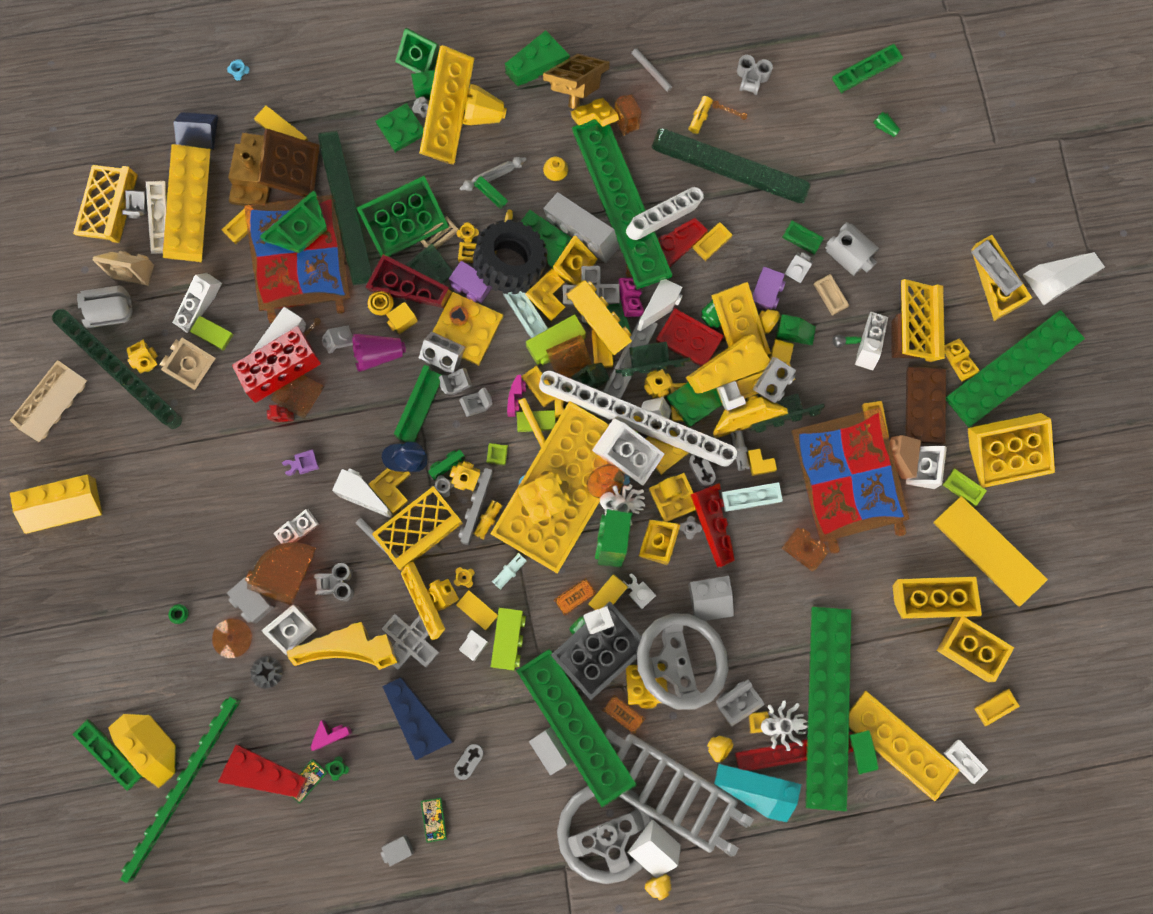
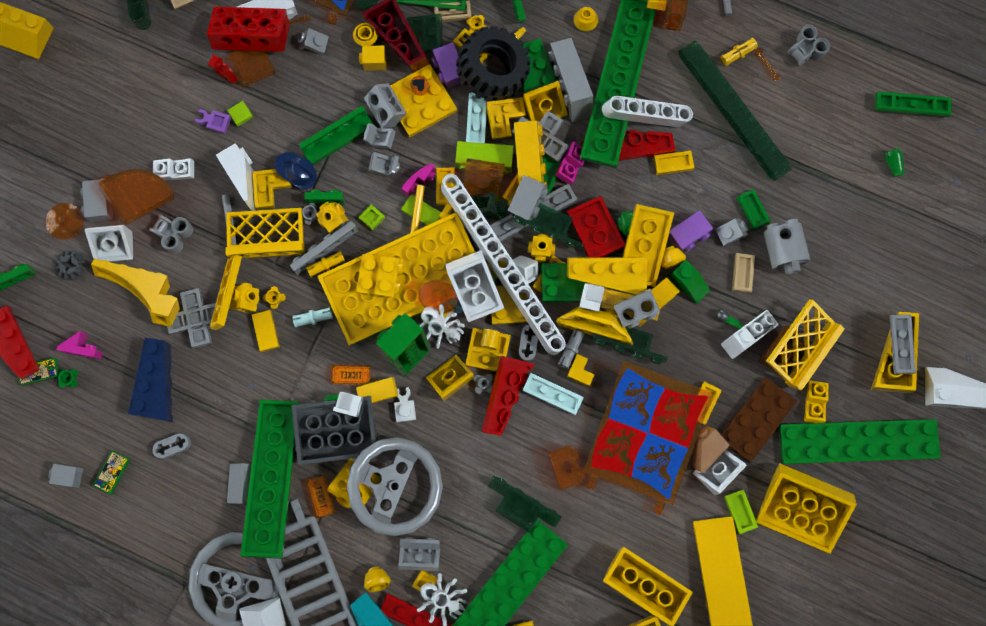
camera: 40 degrees right, 0 degrees up
(172, 614) = (34, 170): green plate -> none
(319, 442) = (240, 113): none -> lime tile
(375, 350) = (333, 69): magenta cone -> none
(473, 645) = (242, 357): white panel -> none
(508, 639) = (271, 370): lime brick -> none
(622, 349) = (528, 197): none -> light grey brick
(662, 302) = (590, 184): white slope -> none
(712, 598) = (458, 453): light grey slope -> none
(792, 607) = (521, 508): none -> clear green bracket

